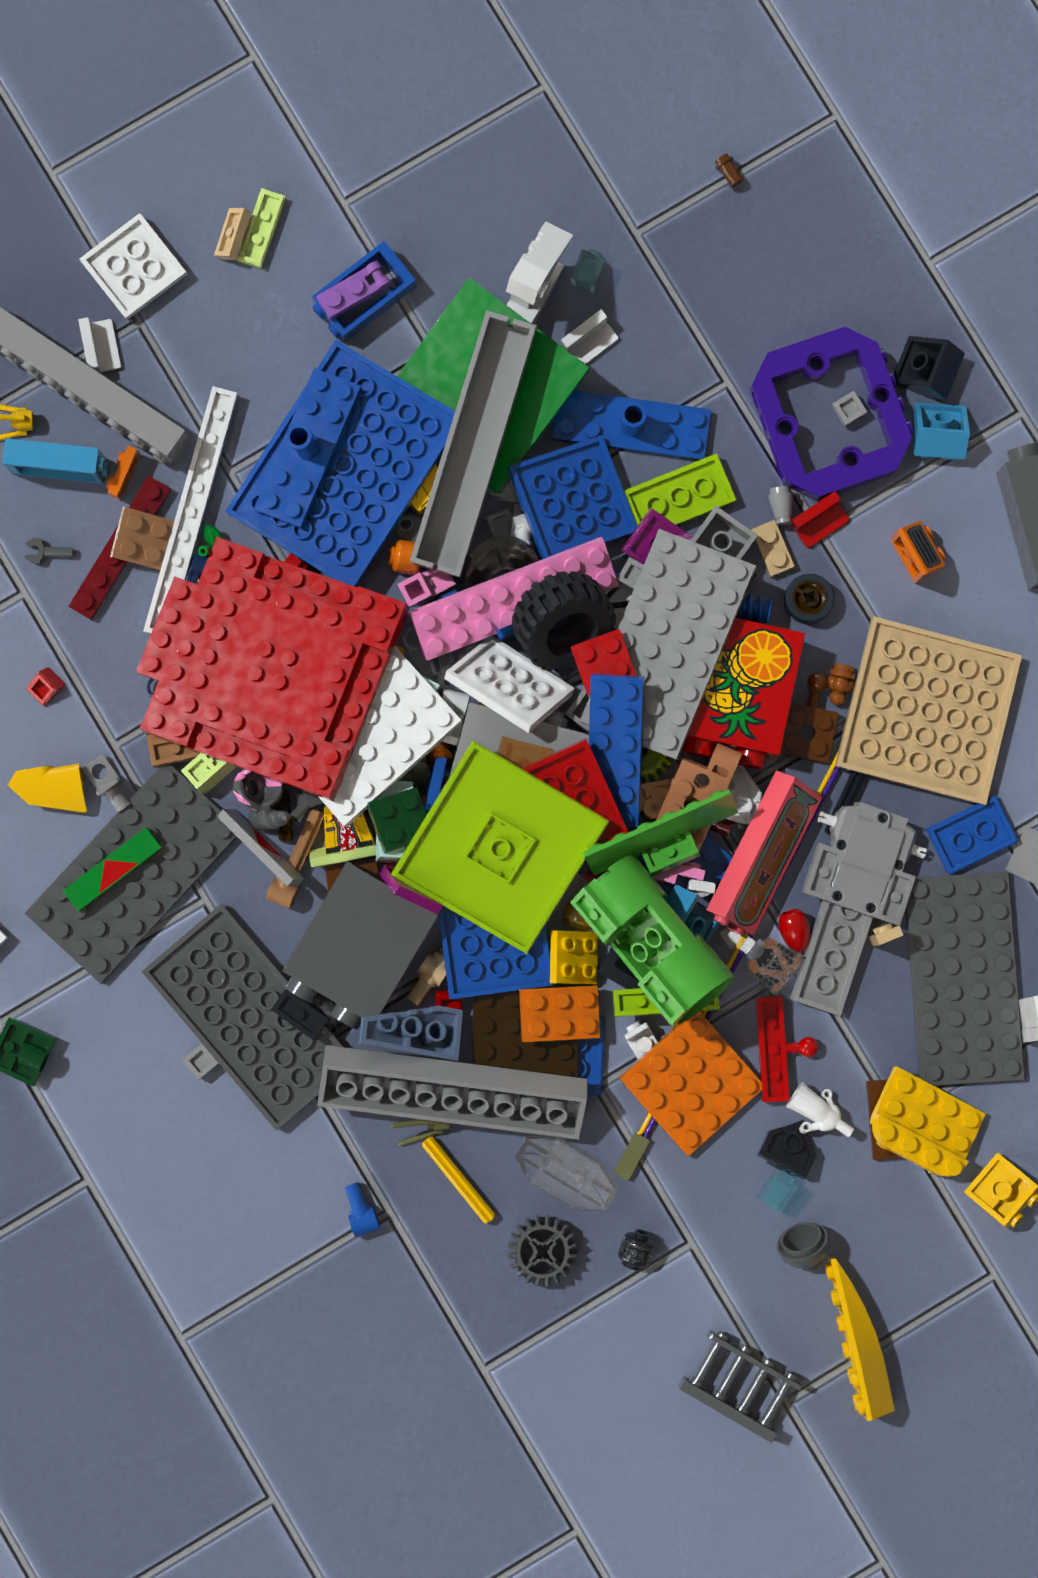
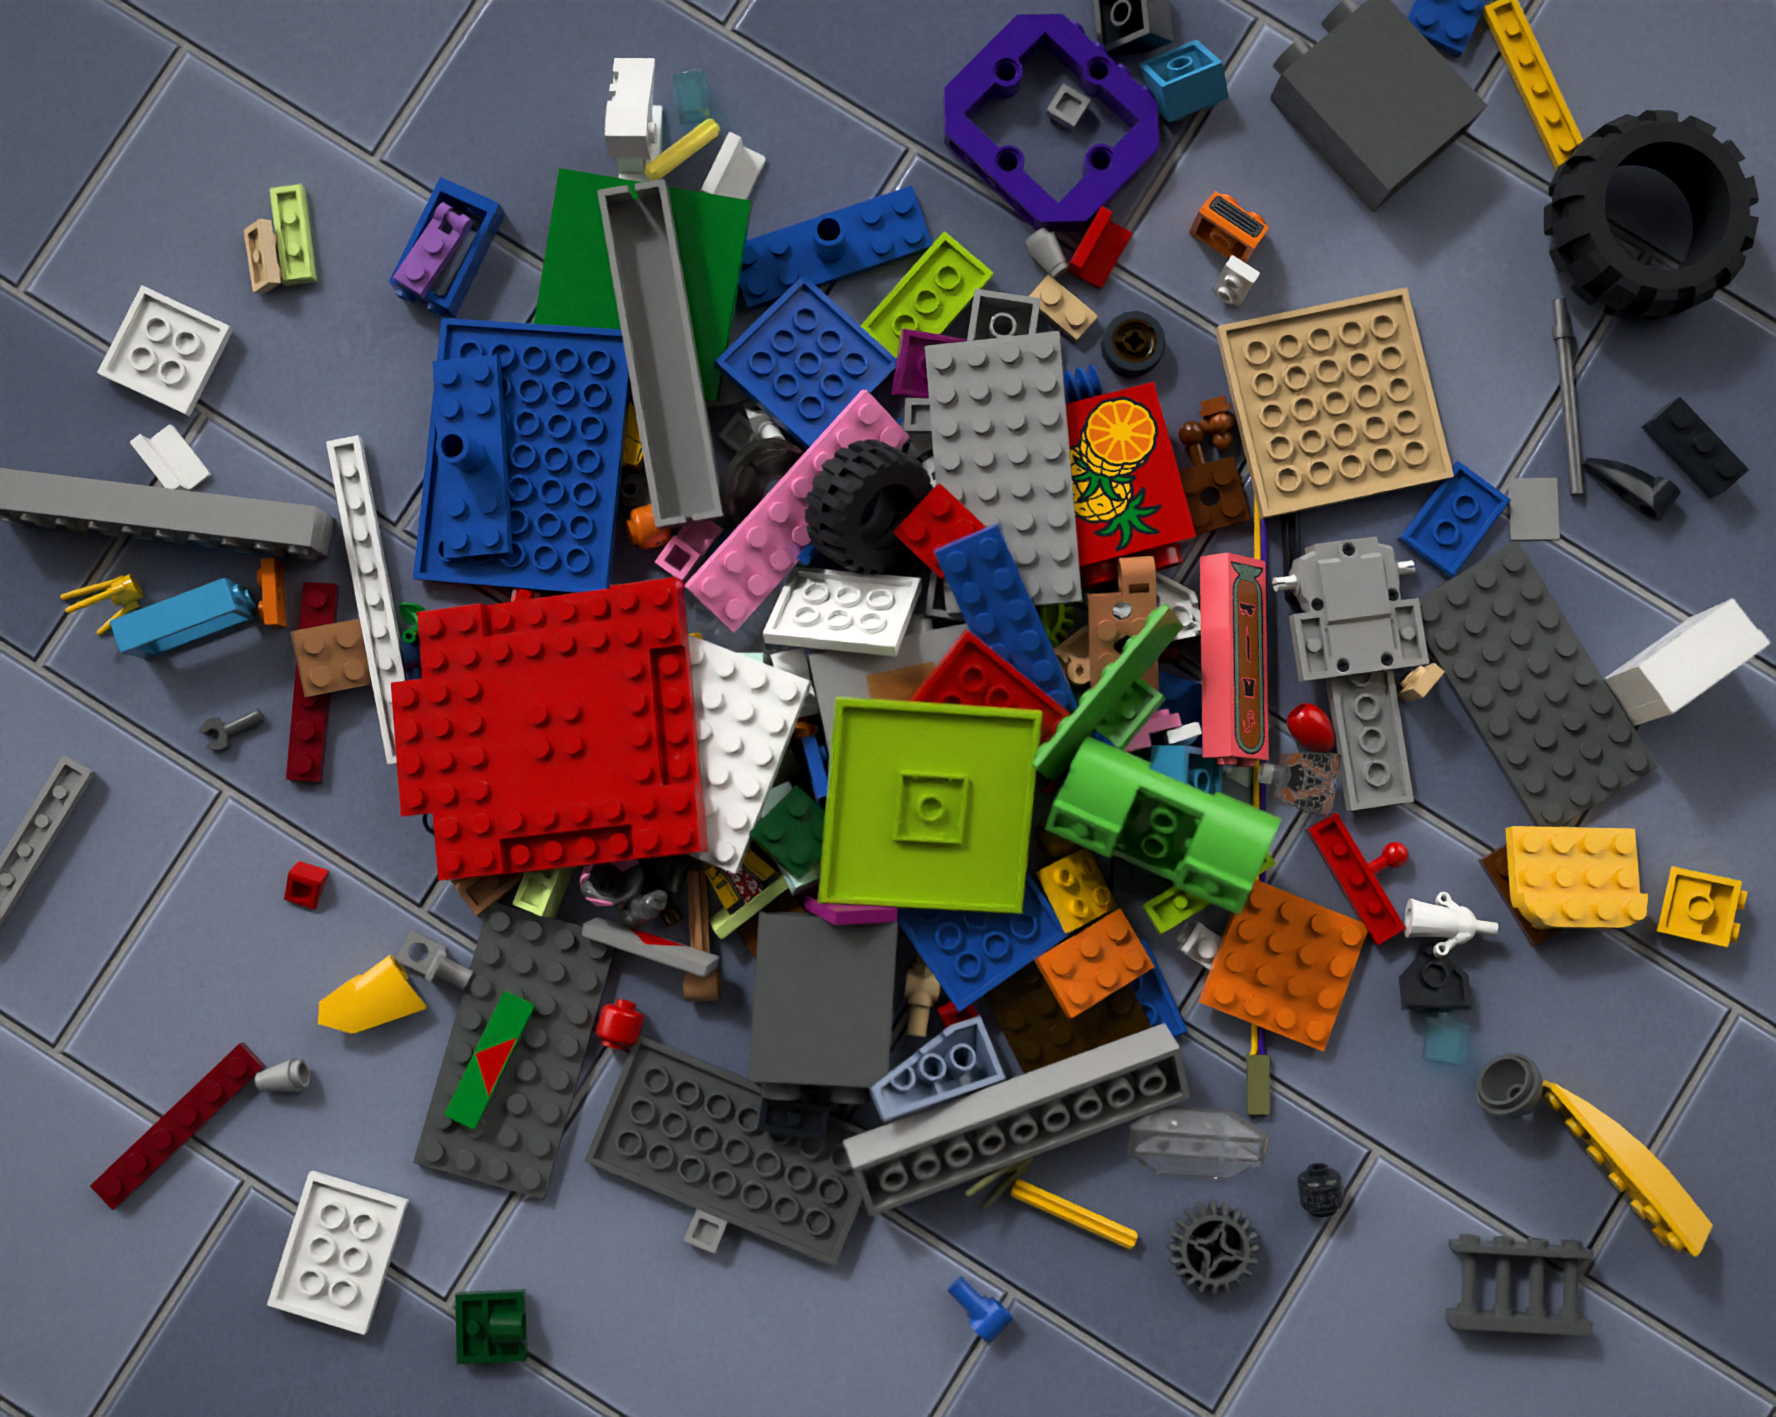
camera: 25 degrees left, 0 degrees up
(212, 891) = (620, 1024): none -> red head
(561, 305) = (682, 150): none -> light yellow axle
(902, 591) = (1235, 281): none -> white plate

